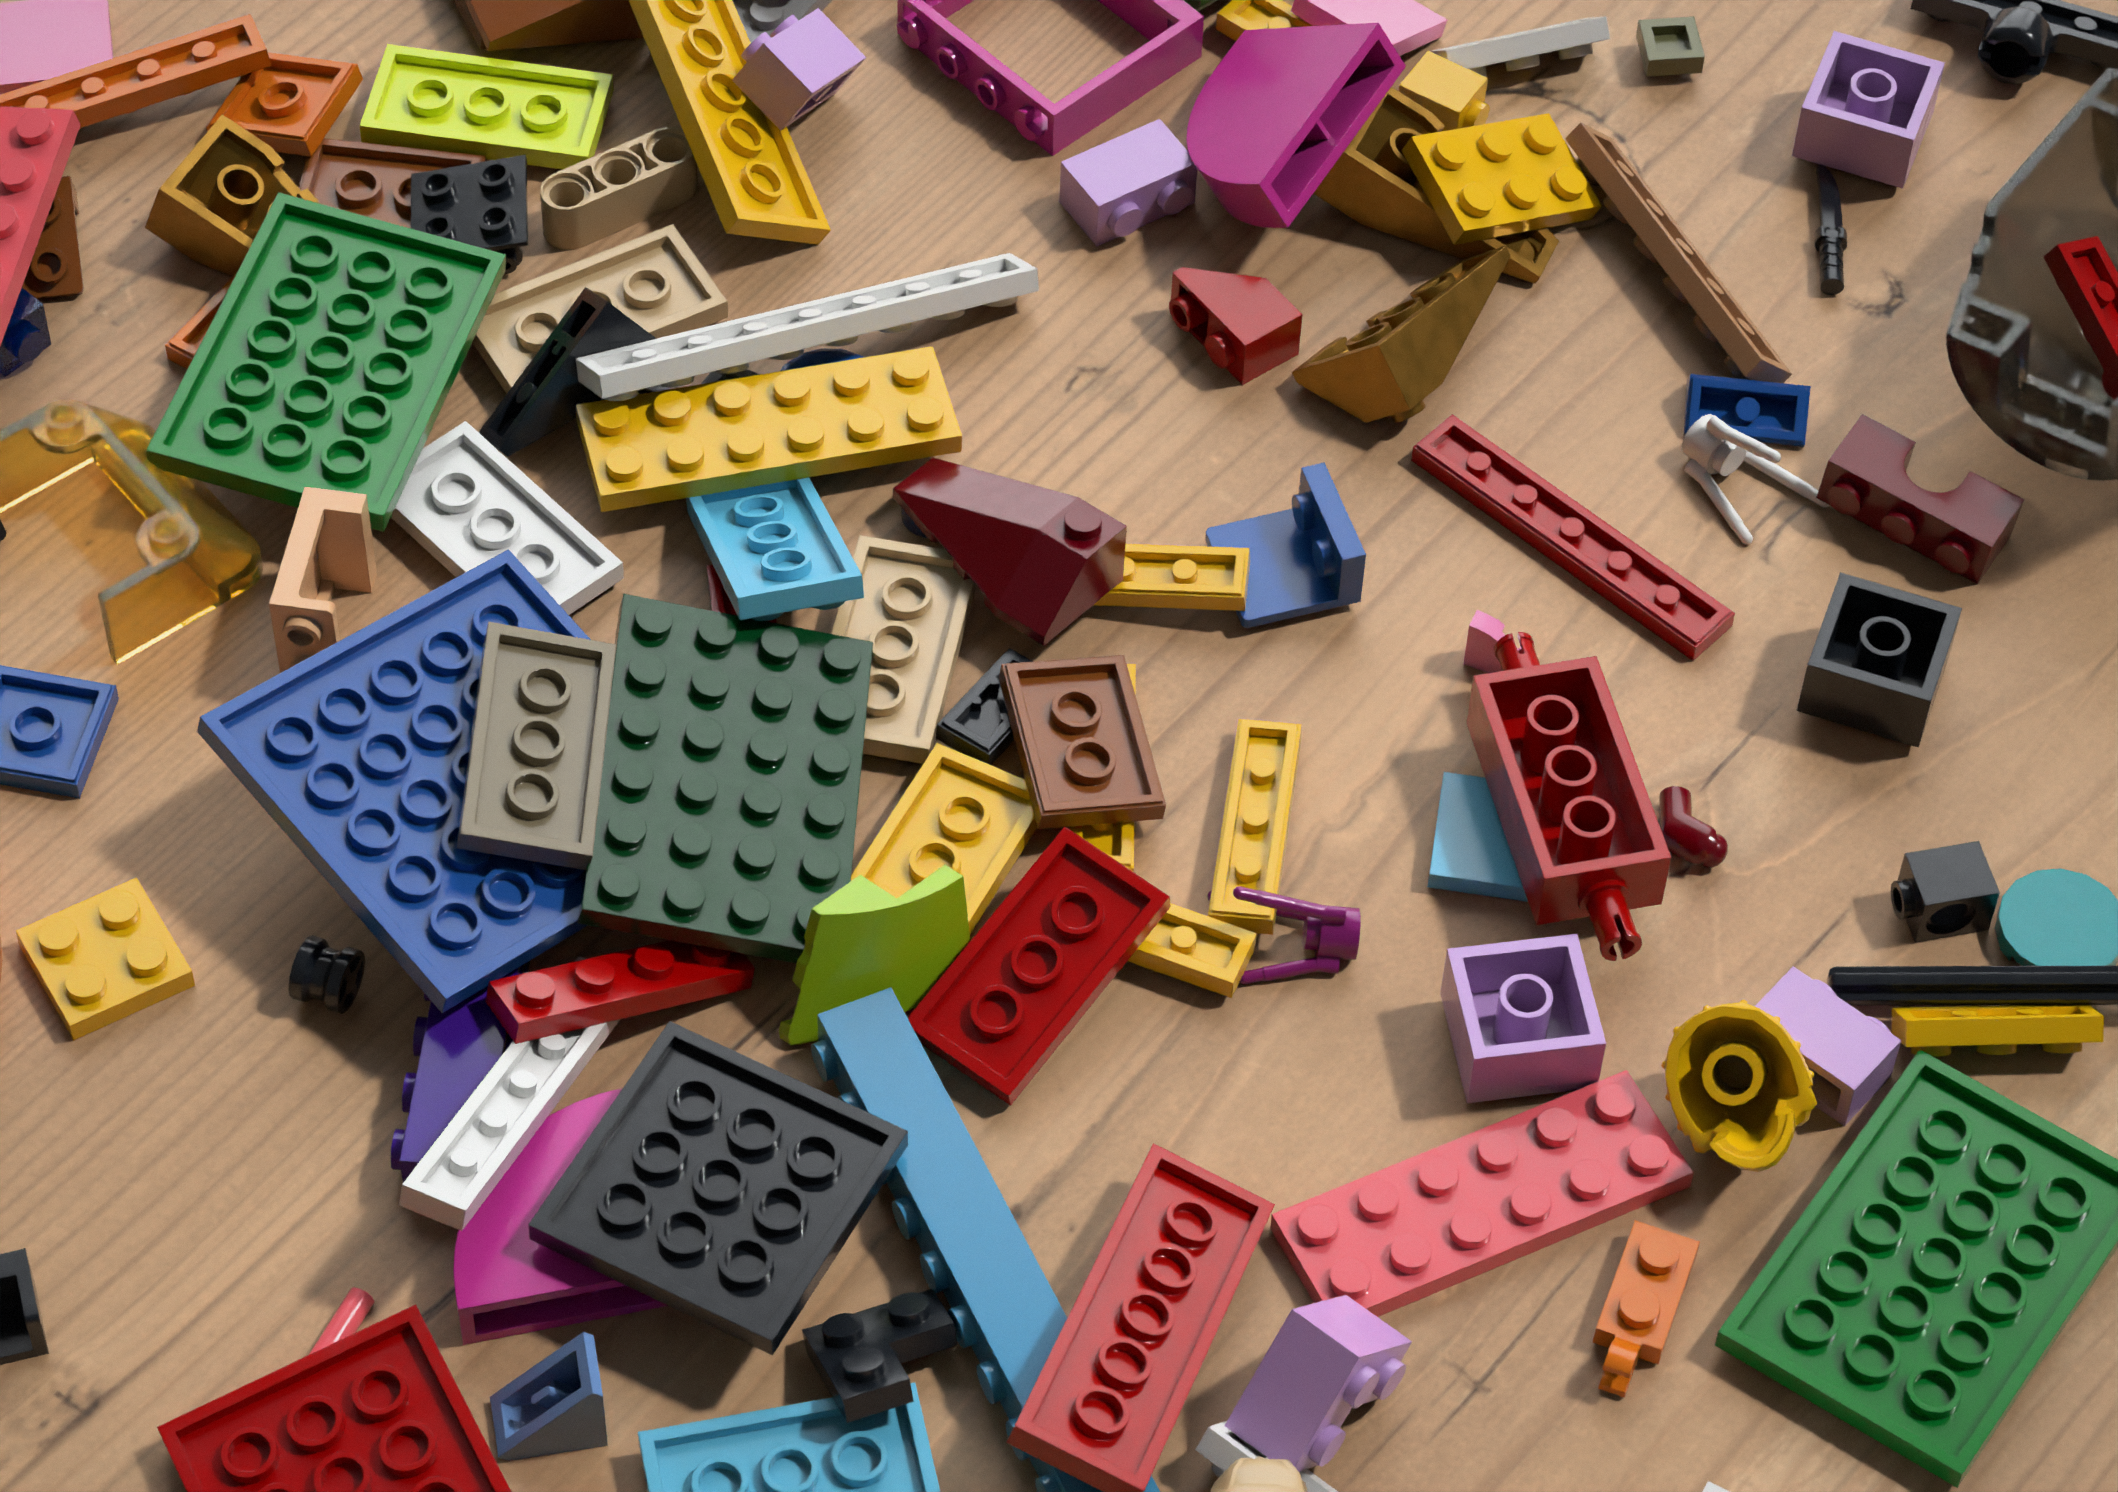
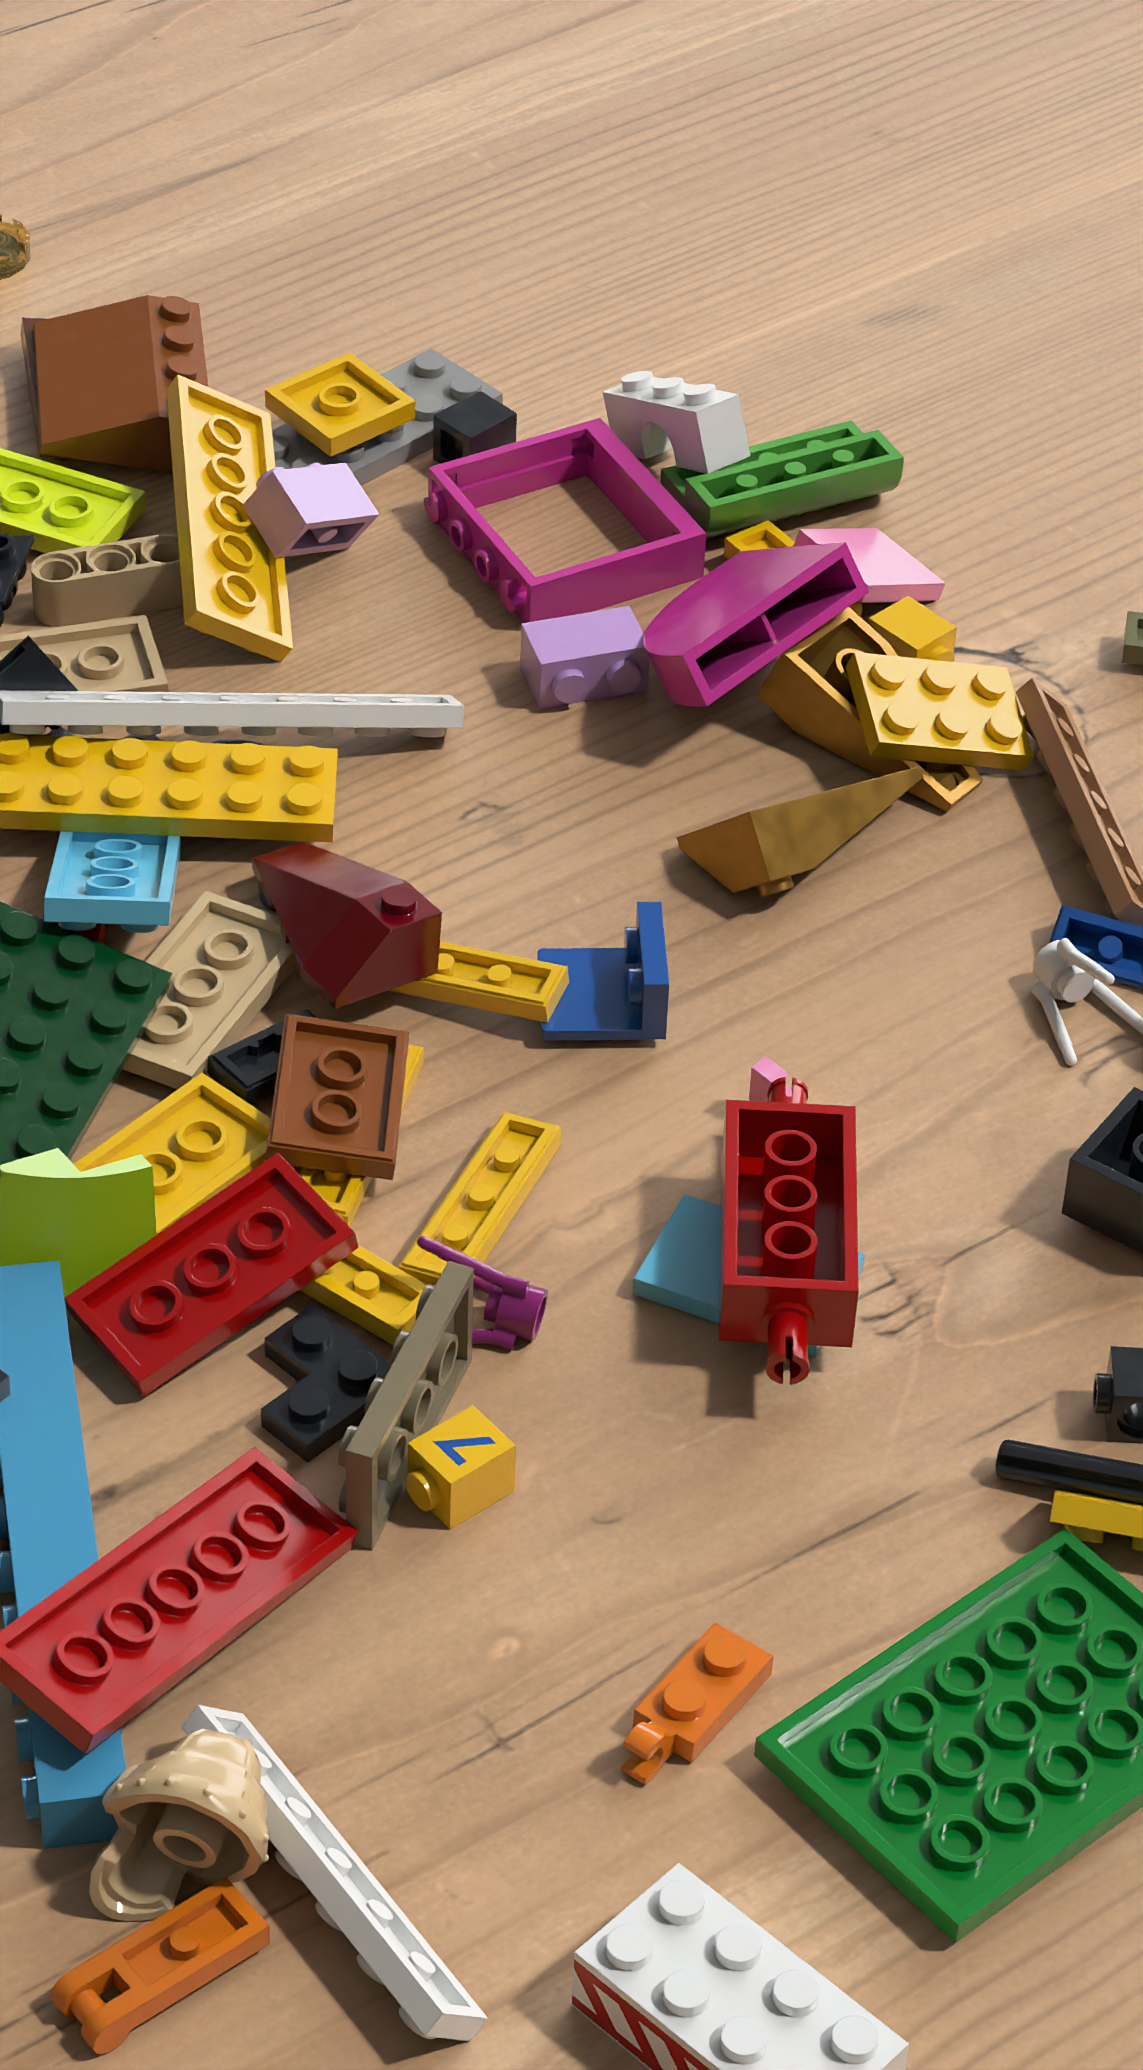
camera: 15 degrees right, 10 degrees down
(1192, 1045) = (332, 1385): none -> black plate
(1236, 319) = (640, 784): red slope -> none
(1279, 1062) = (407, 1403): none -> dark tan plate
(1313, 1375) = (319, 1681): lavender brick -> none
(1345, 1115) = (460, 1467): none -> yellow brick
(1484, 1198) = (569, 1576): coral plate -> none
(1522, 48) = (1008, 615): white plate -> none
(1522, 1018) = (666, 1415): lavender brick -> none
(1573, 537) = (898, 1027): red tile -> none
(1687, 835) = (906, 1297): dark red arm -> none
(1738, 1084) = (856, 1510): yellow head -> none
(1841, 1045) = (963, 1504): lavender brick -> none

